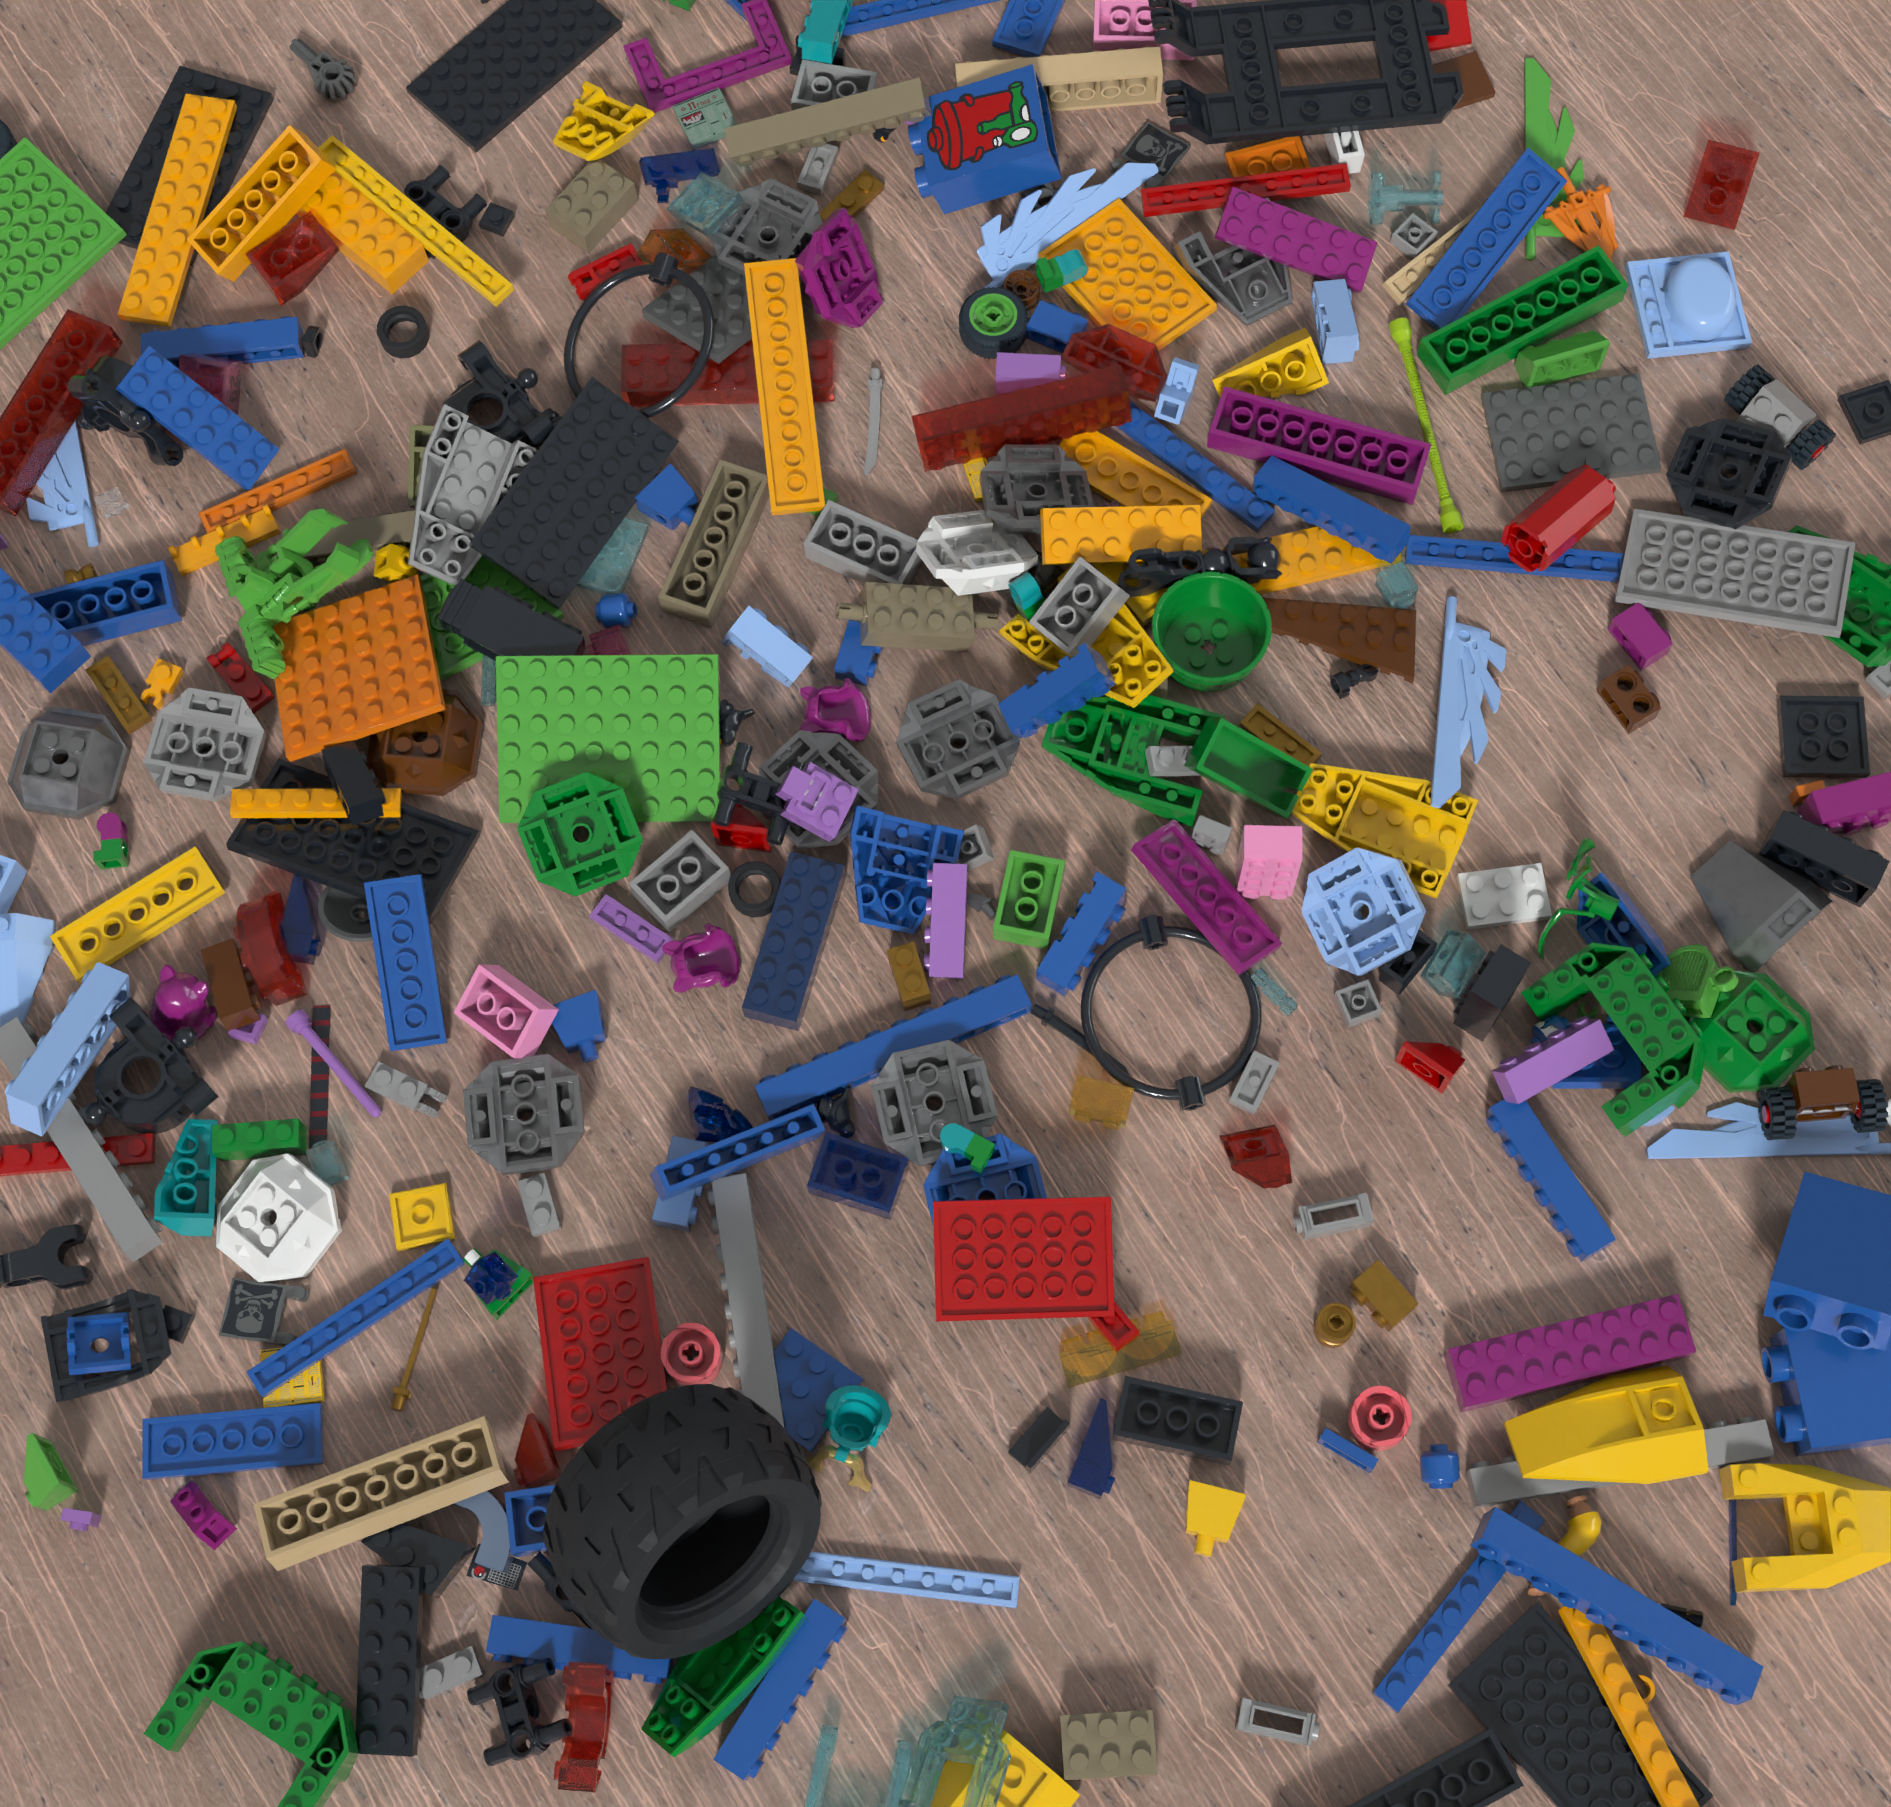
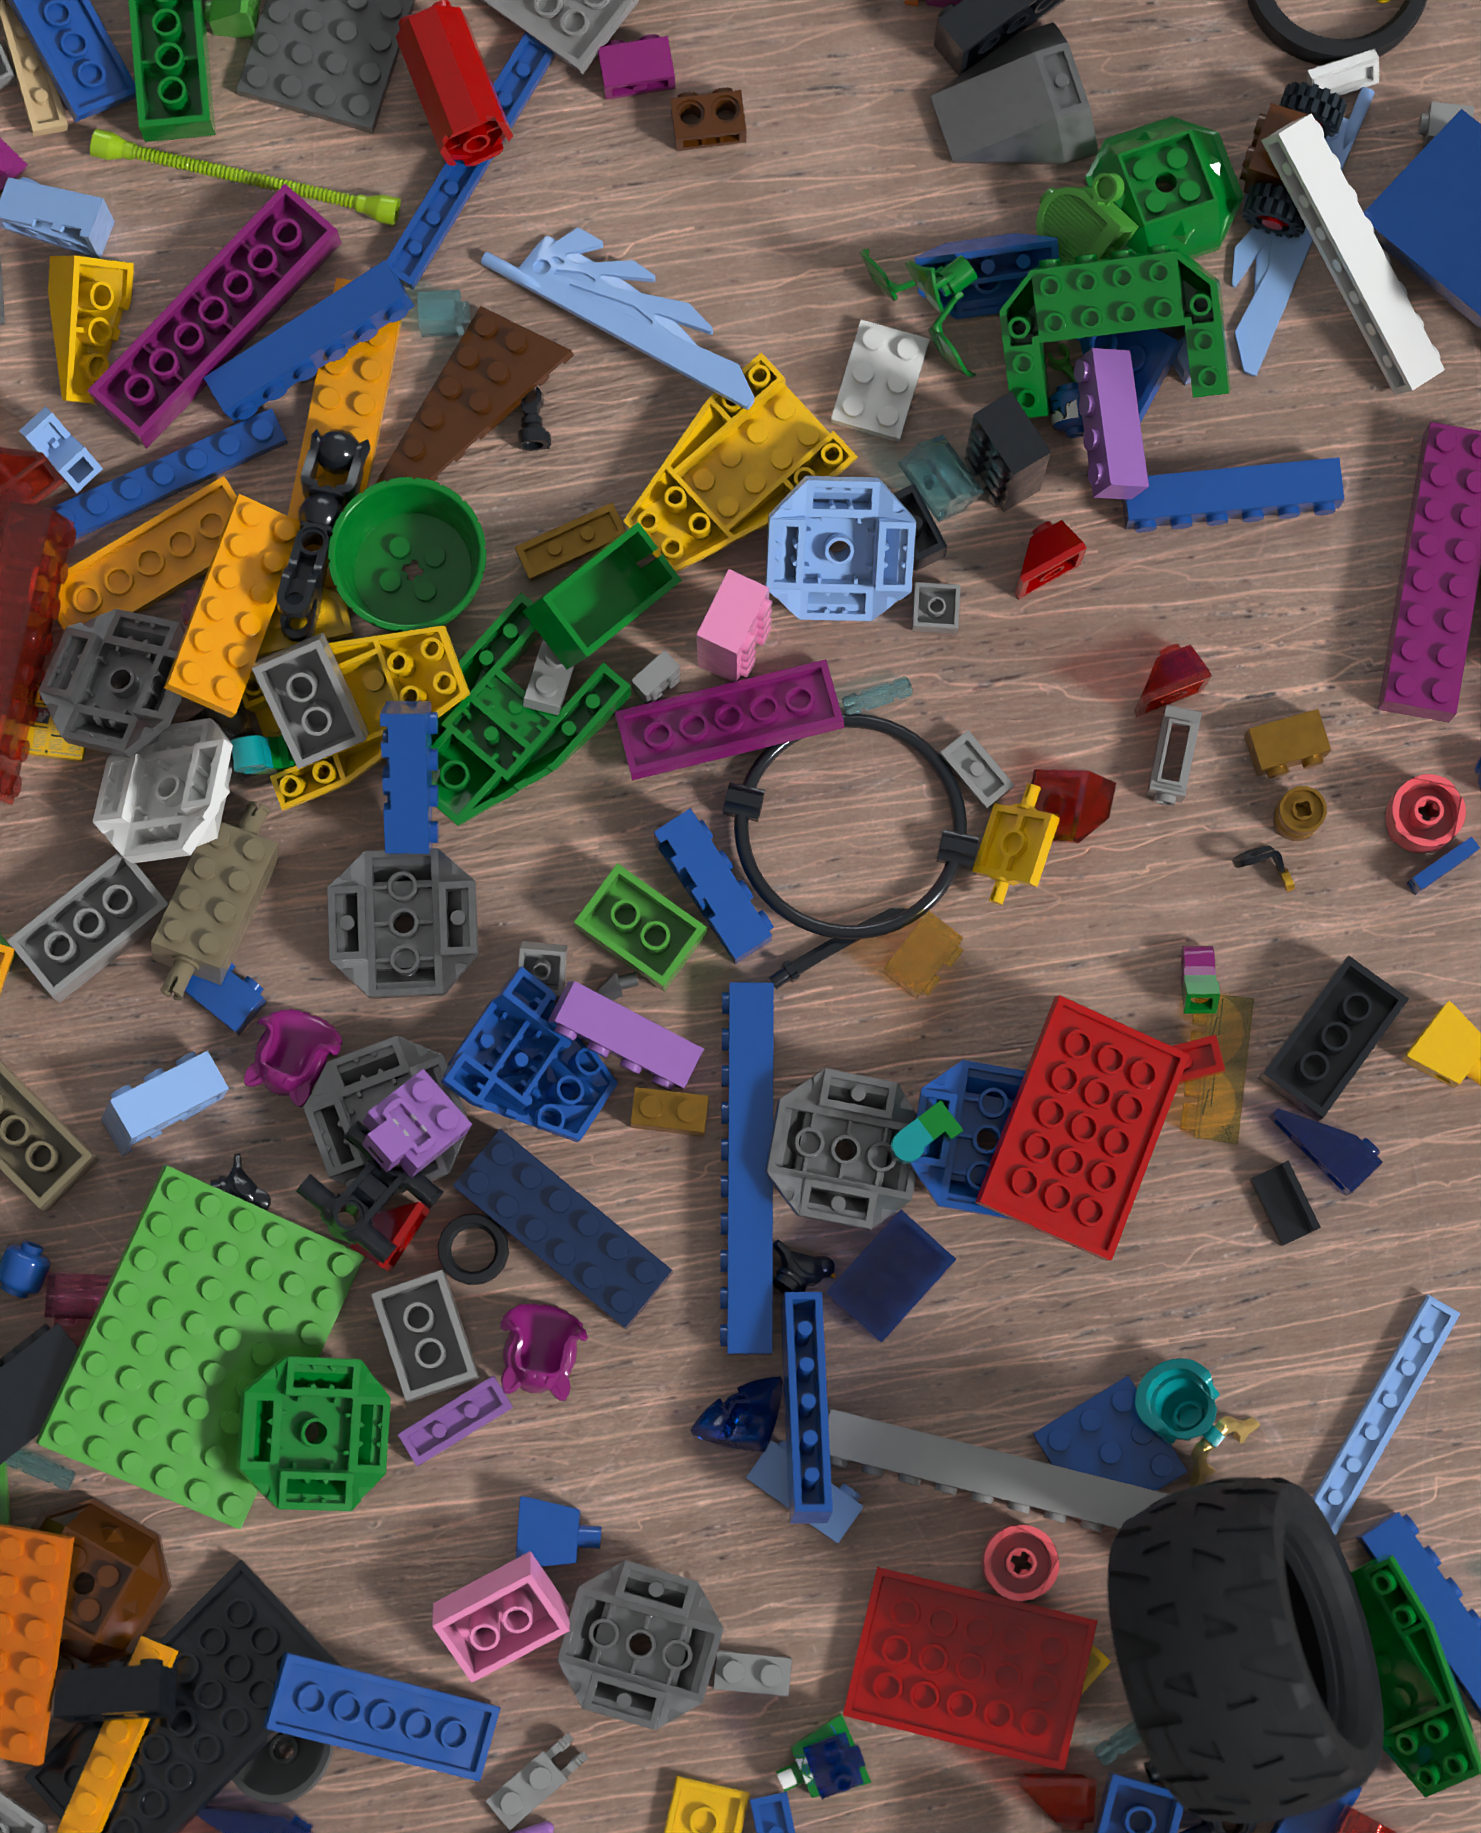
camera: 70 degrees left, 10 degrees up
(1175, 1304) = (1199, 979): none -> leg
(1211, 1130) = (1015, 844): none -> yellow plate
(1297, 1318) = (1261, 853): none -> black piece
(1386, 1188) = (1173, 677): none -> clear red slope
(1773, 1178) = (1353, 254): none -> white brick

